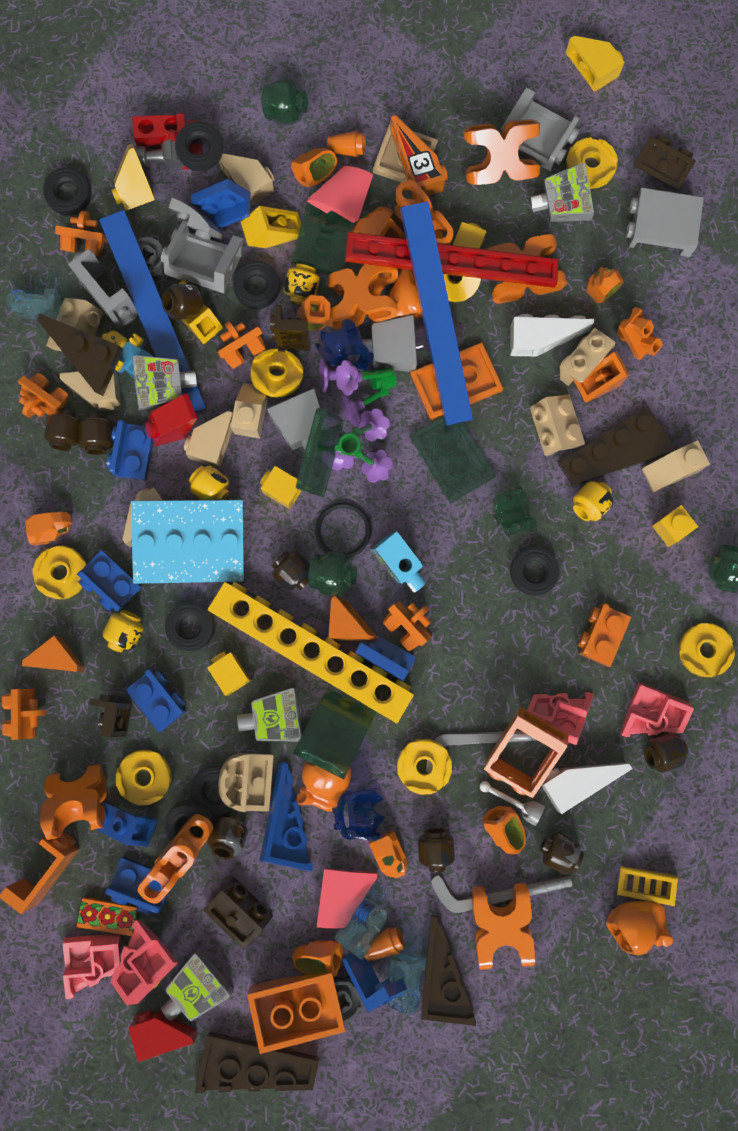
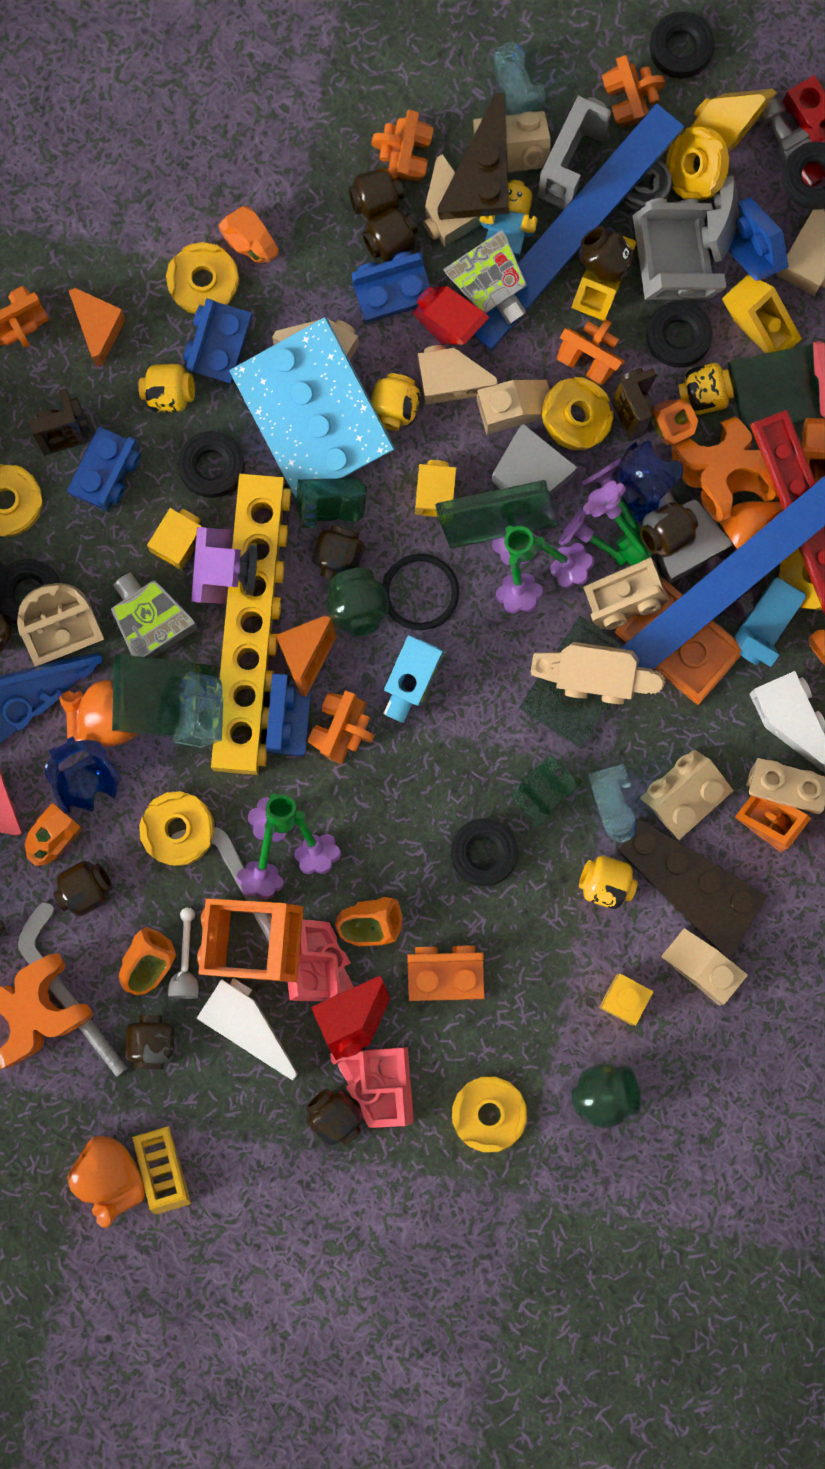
camera: 65 degrees right, 0 degrees up
(158, 204) = (713, 163): none -> yellow tile
(254, 559) = (330, 500): none -> clear green leg
(266, 652) = (220, 566): none -> medium lavender piece
(355, 712) = (200, 710): none -> clear light blue leg
(386, 348) = (669, 529): none -> dark brown head
(411, 398) = (626, 594): none -> tan bracket
(454, 693) = (271, 822): none -> medium lavender plant
(455, 439) = (597, 670): none -> tan hinge
(473, 322) = (768, 622): none -> dark azure bracket
(545, 474) = (615, 814): none -> clear light blue leg
(548, 667) = (370, 922): none -> orange rock
(606, 709) = (352, 1017): none -> red slope

